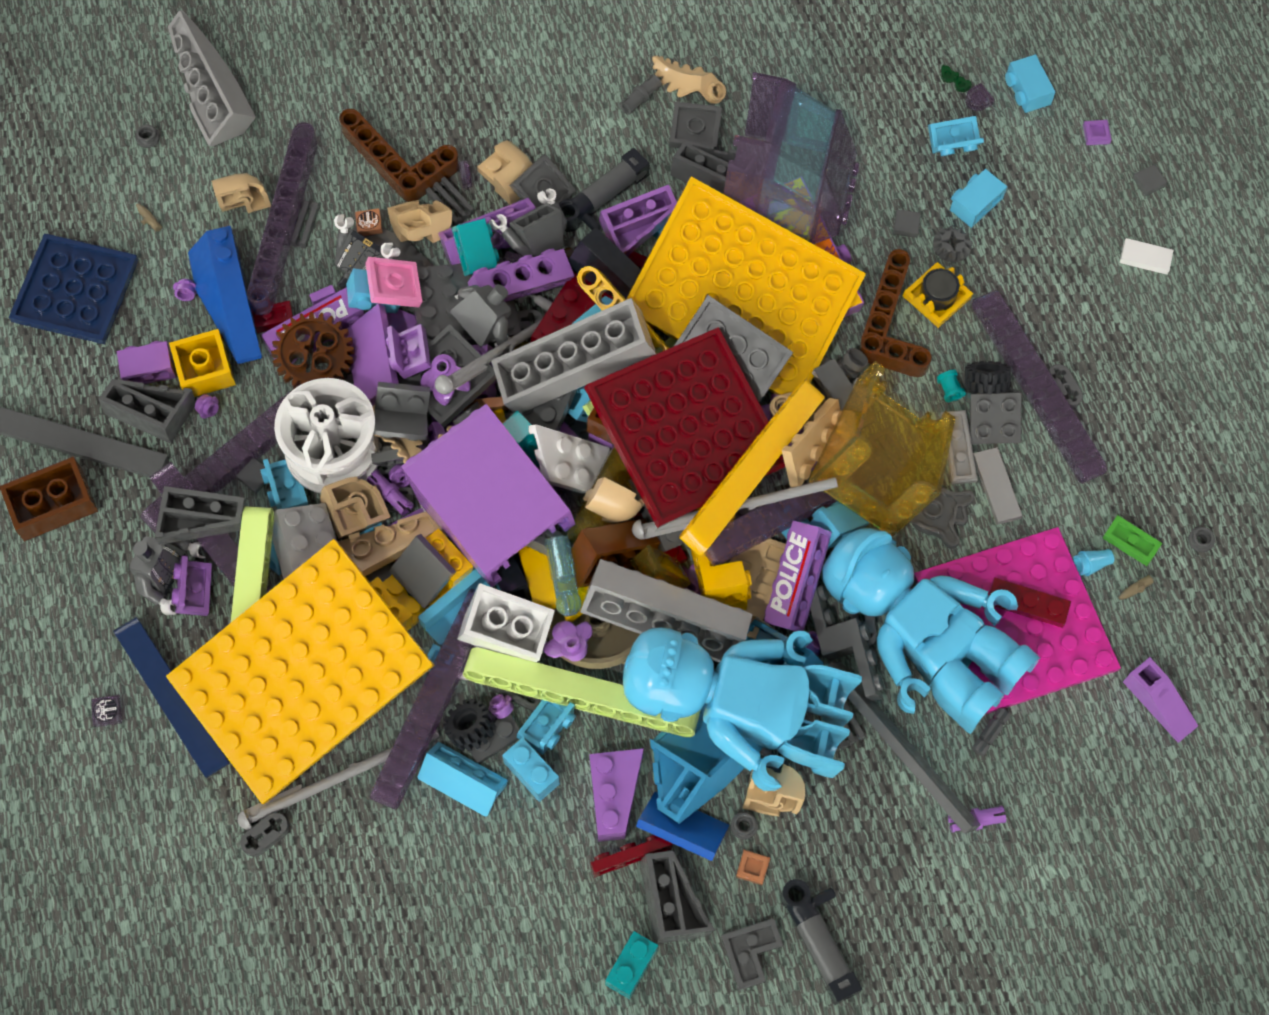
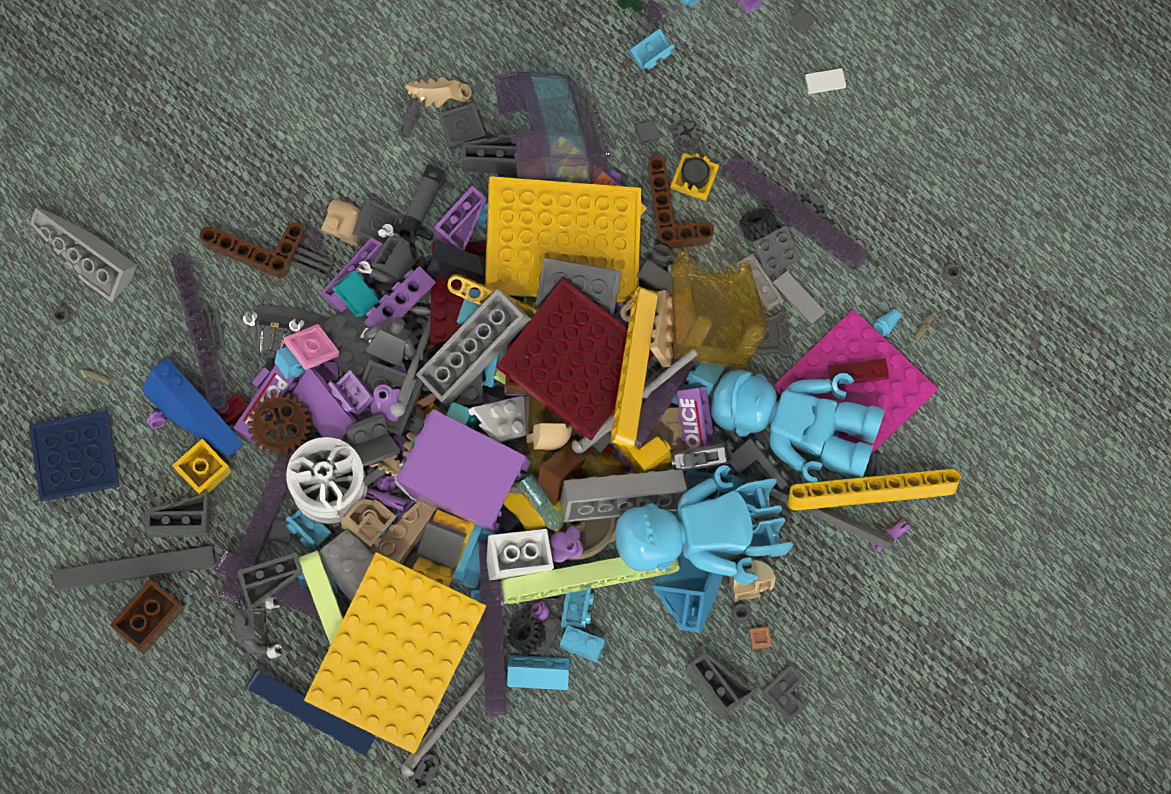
camera: 25 degrees left, 5 degrees up
(106, 711) = (270, 743): clear purple tile -> none
(146, 363) = (159, 486): medium lavender brick -> none
(193, 587) = (284, 630): medium lavender bracket -> none
(206, 406) = (220, 497): medium lavender plate -> none
(240, 191) = (158, 326): tan brick -> none
(369, 222) = (263, 307): nougat tile -> none
(415, 220) = (301, 289): tan brick -> none
(614, 789) = (644, 631): medium lavender wedge -> none
(628, 855) = (676, 668): dark red plate -> none
(631, 965) = (713, 739): teal brick -> none
(696, 833) = (715, 634): blue tile -> none
(782, 611) = (700, 457): none -> flat silver piece
(839, 980) = (827, 665): piece -> none
(951, 386) = (735, 240): teal bush -> none
(978, 197) = (689, 90): medium azure brick -> none
(981, 751) = (873, 489): none -> yellow beam
(1132, 540) = (906, 295): bright green plate -> none
(1161, 699) = (974, 398): medium lavender slope -> none

